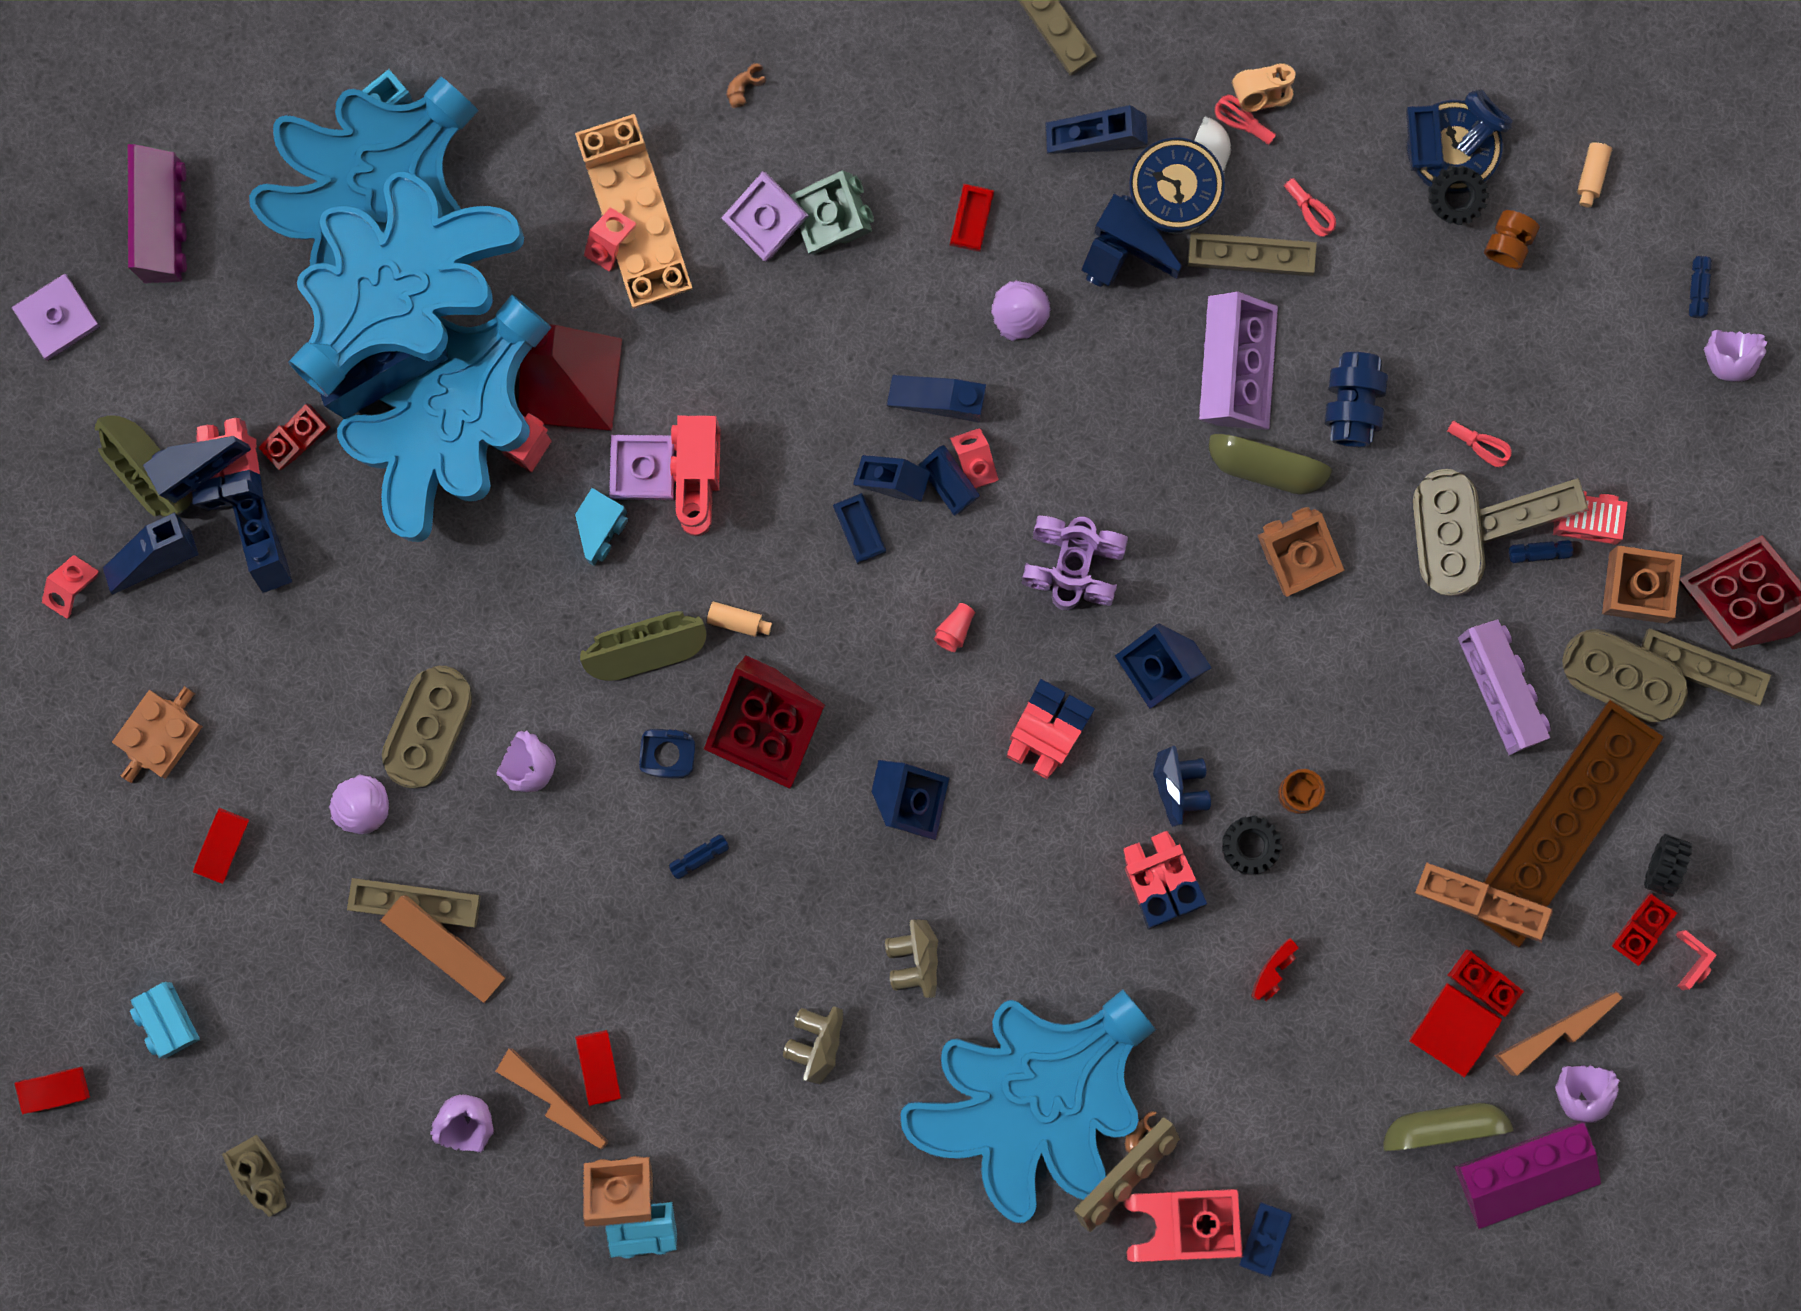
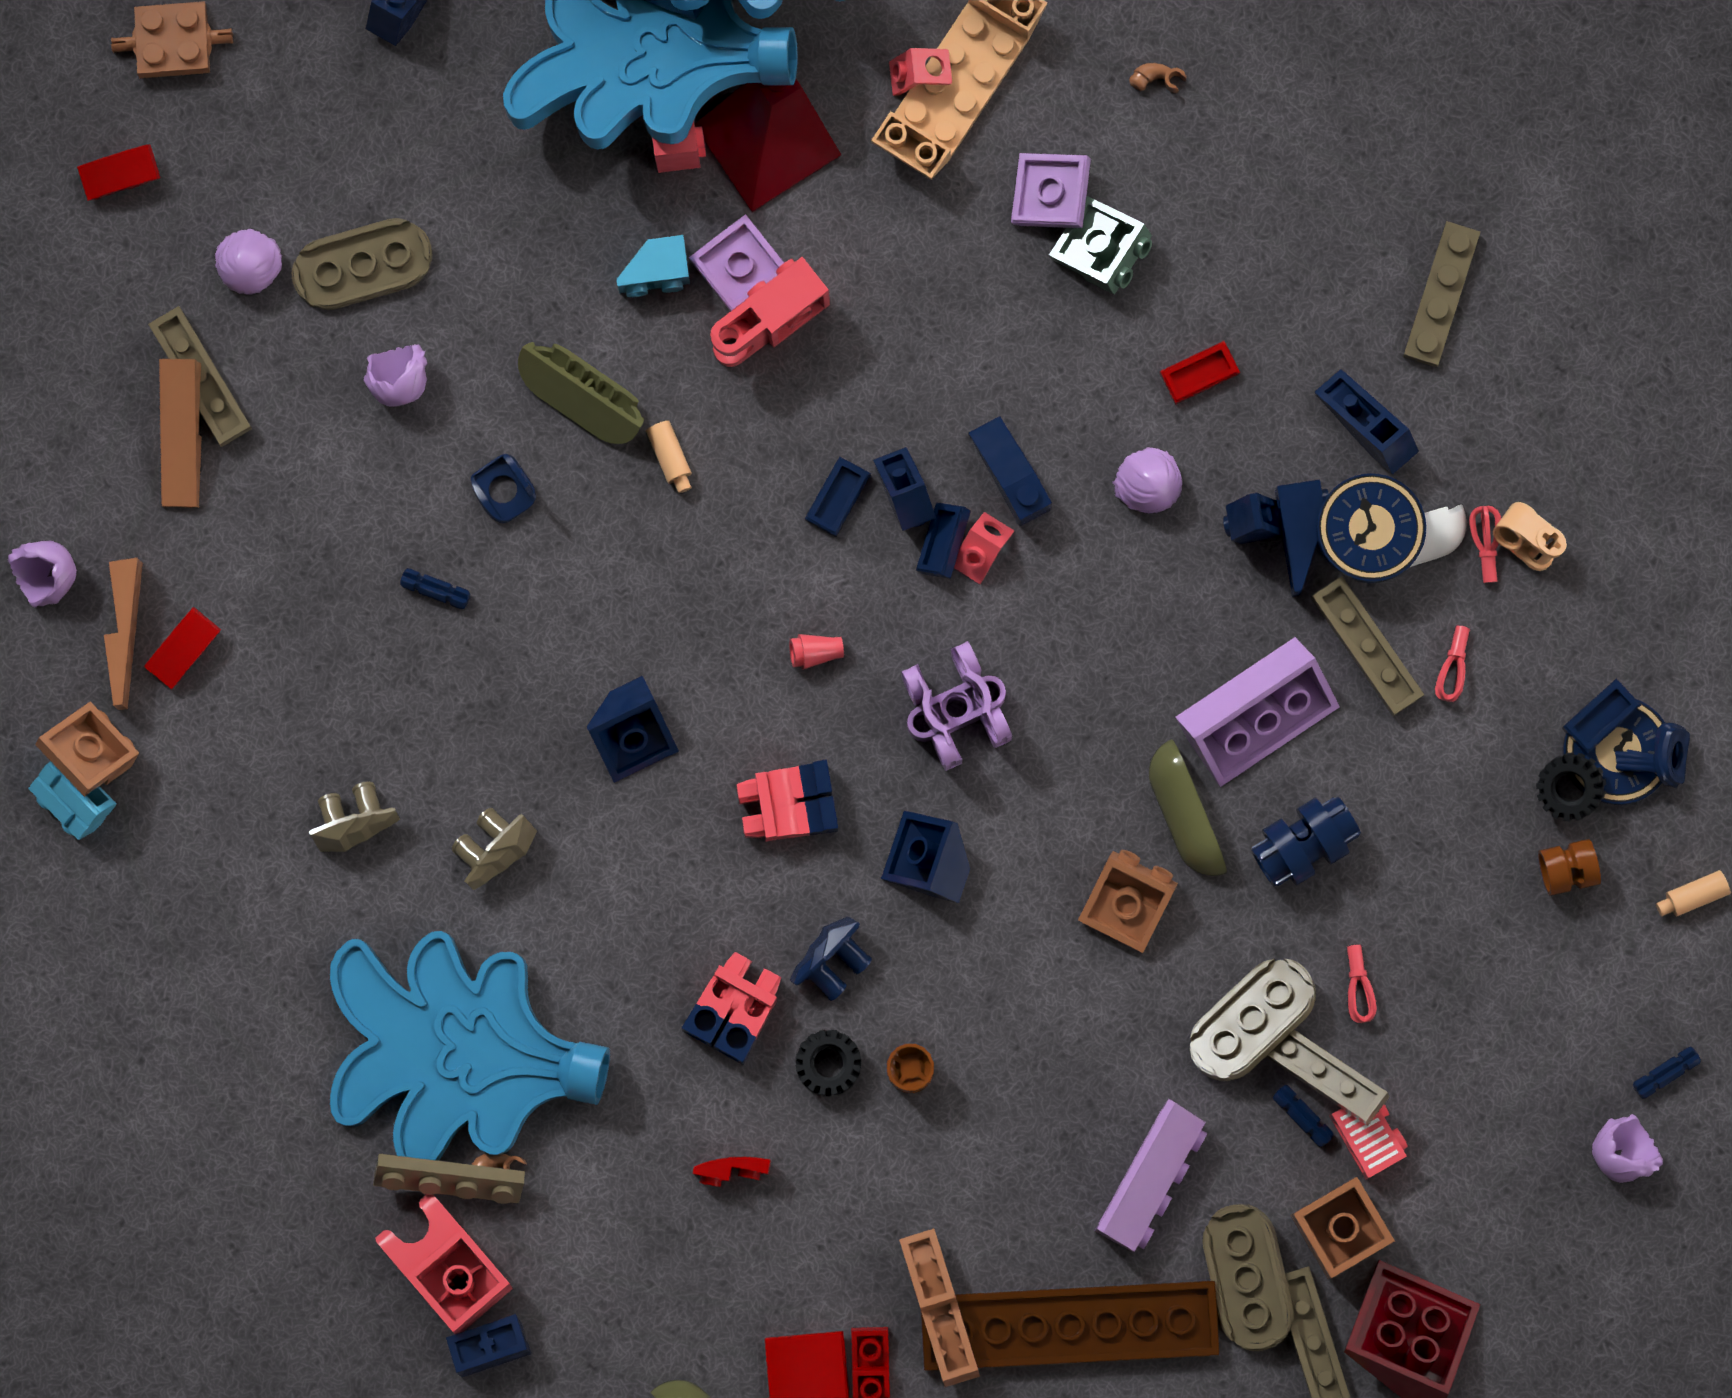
camera: 50 degrees right, 0 degrees up
(764, 722) = (597, 550): dark red slope -> none

